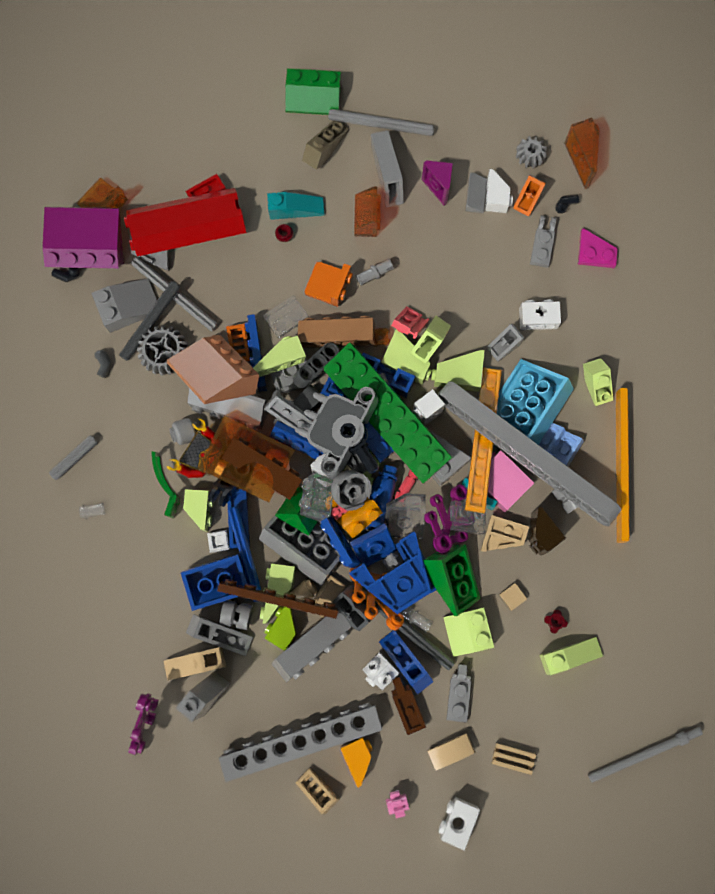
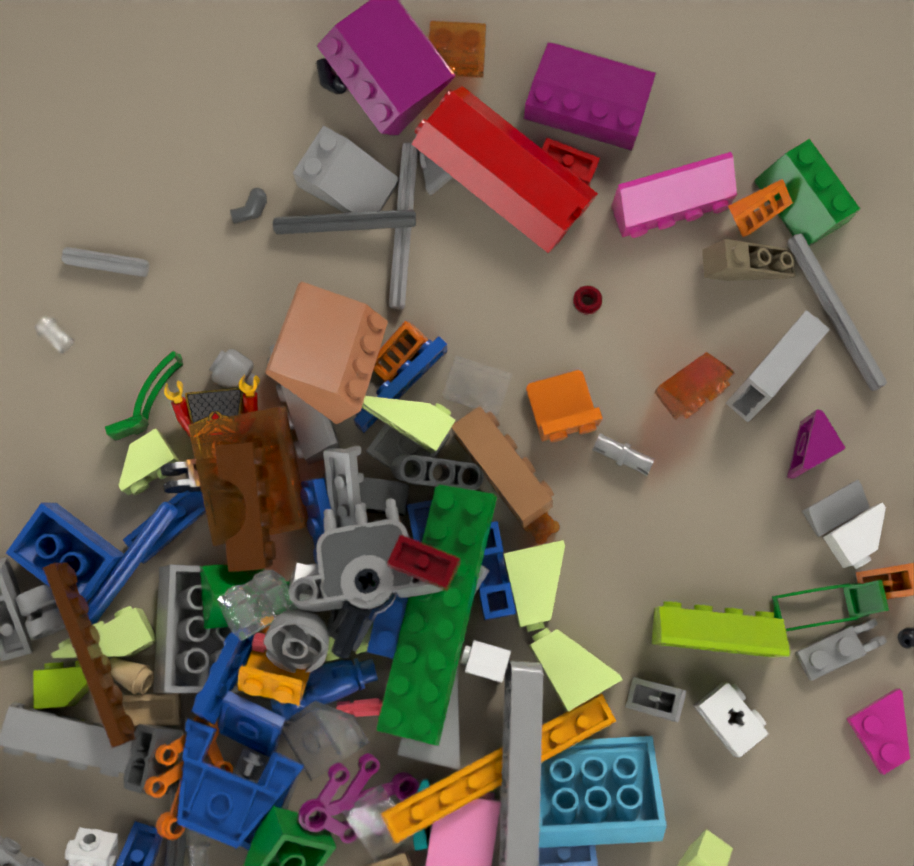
camera: 50 degrees right, 0 degrees up
(149, 343) = (307, 269): light grey gear -> none
(180, 155) = (589, 96): none -> magenta slope
(218, 541) = (123, 518): white tile -> none
(265, 152) = (675, 195): none -> slope
(294, 205) = (633, 285): teal slope -> none
(301, 122) = (743, 210): none -> orange slope
(360, 394) = (423, 562): none -> dark red plate
(410, 322) = (587, 551): coral plate -> none
(430, 339) = (583, 597): yellowish green slope -> none
(494, 290) = (719, 631): none -> lime slope
(526, 215) = (860, 601): none -> green piece

